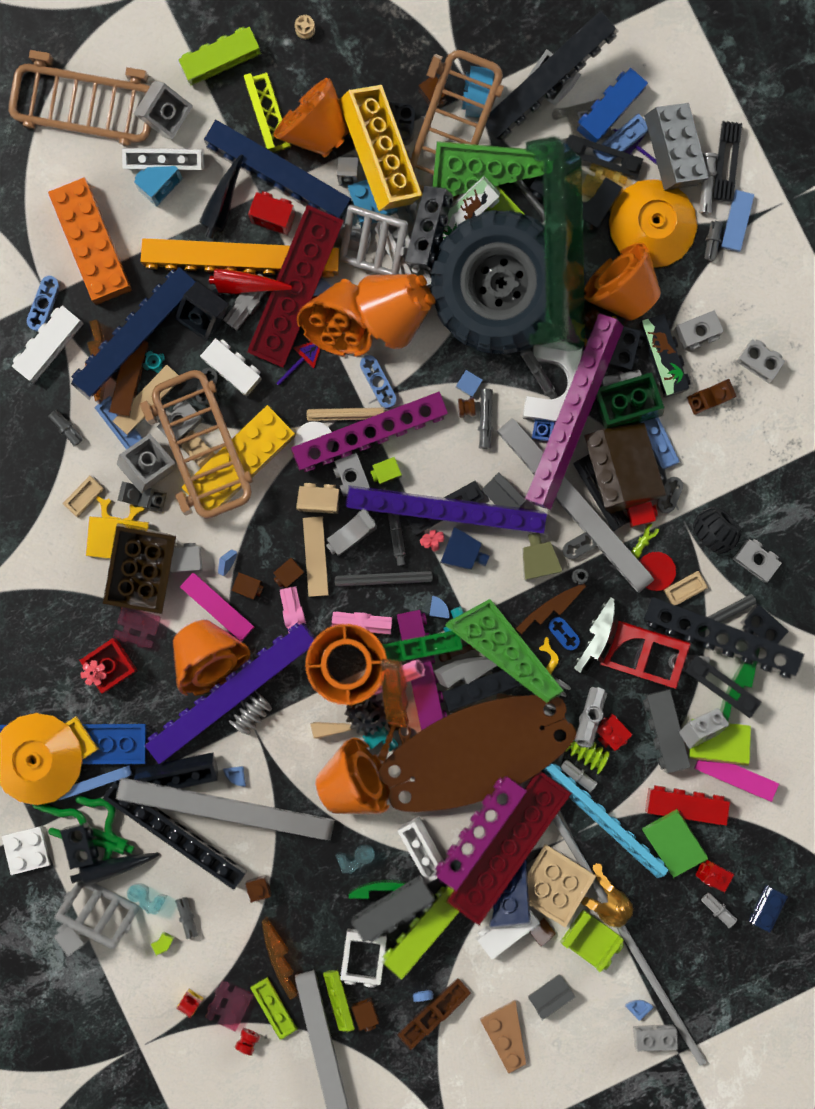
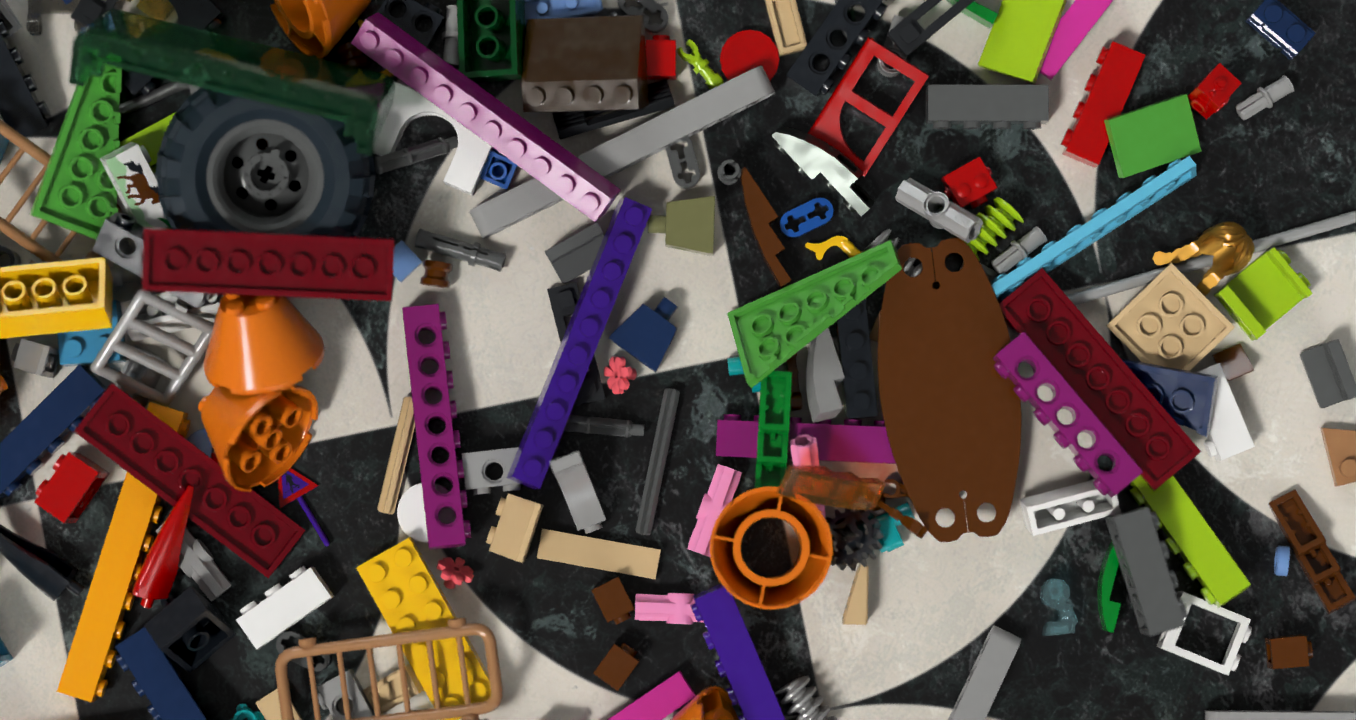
camera: 80 degrees left, 0 degrees up
(226, 562) = (572, 687): medium blue tile -> none
(280, 468) = (454, 572): none -> coral plant
(338, 1000) = (1258, 686): lime tile -> none
(352, 781) = (945, 583): orange cone -> none
(366, 371) = (340, 393): medium blue beam -> none
(386, 471) = (499, 417): lime brick -> none
(438, 608) = (722, 391): medium blue tile -> none
(443, 297) = (267, 264): none -> dark red plate
(703, 728) = (997, 50): light grey brick -> none

